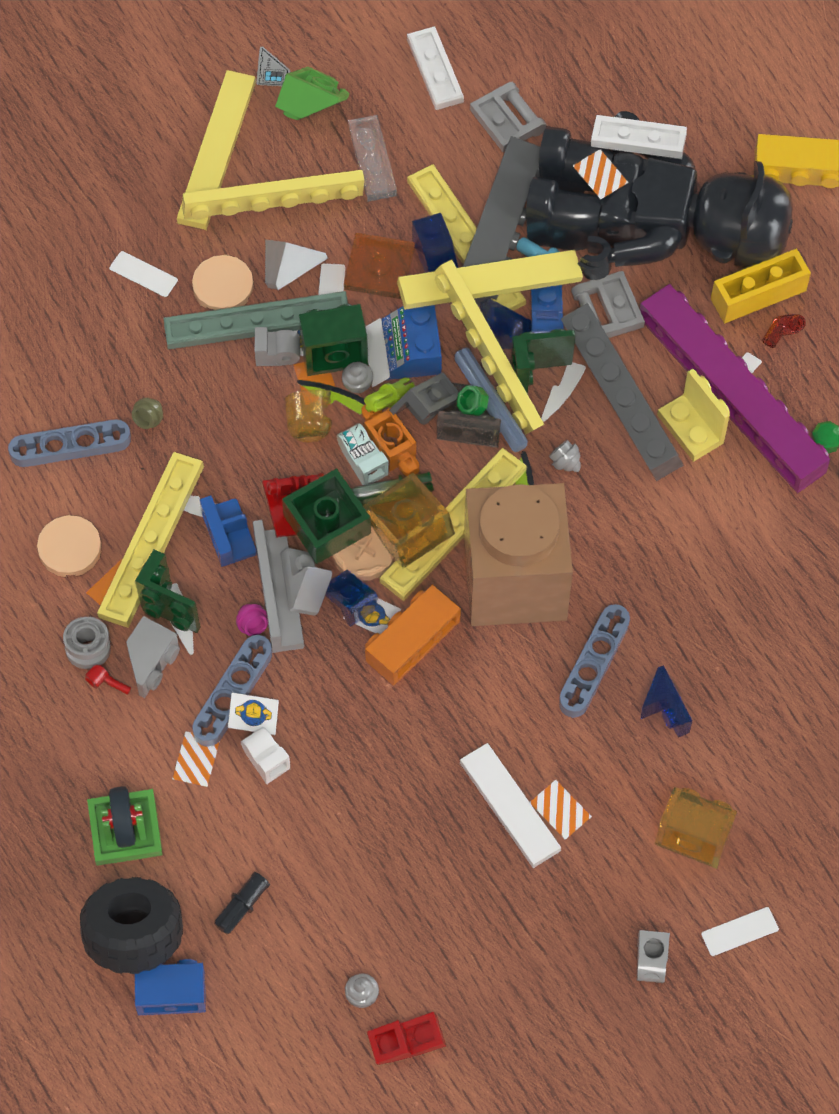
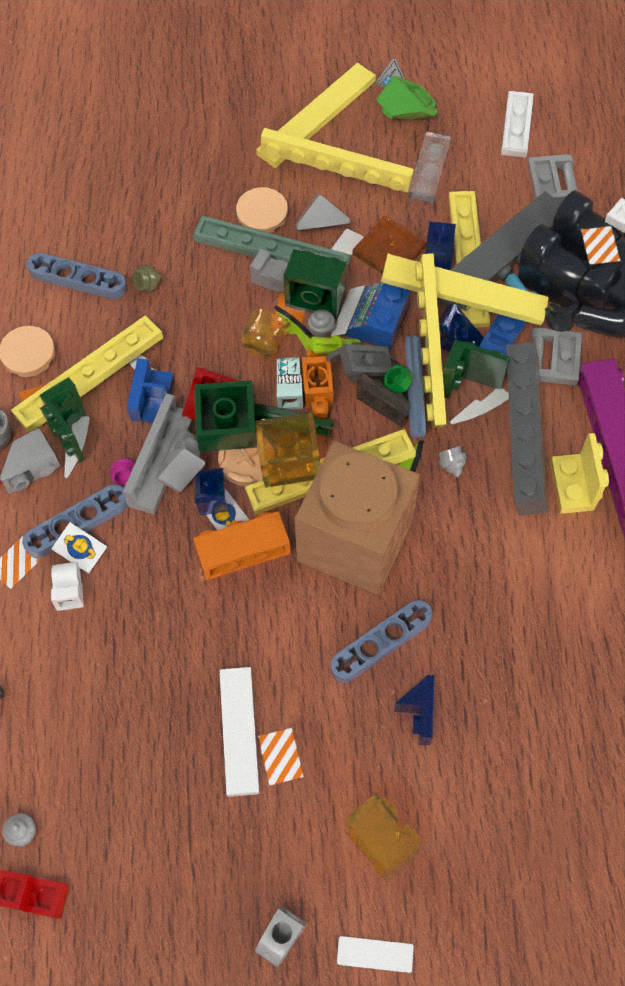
camera: 30 degrees right, 0 degrees up
(143, 273) = (209, 180): white sticker -> none

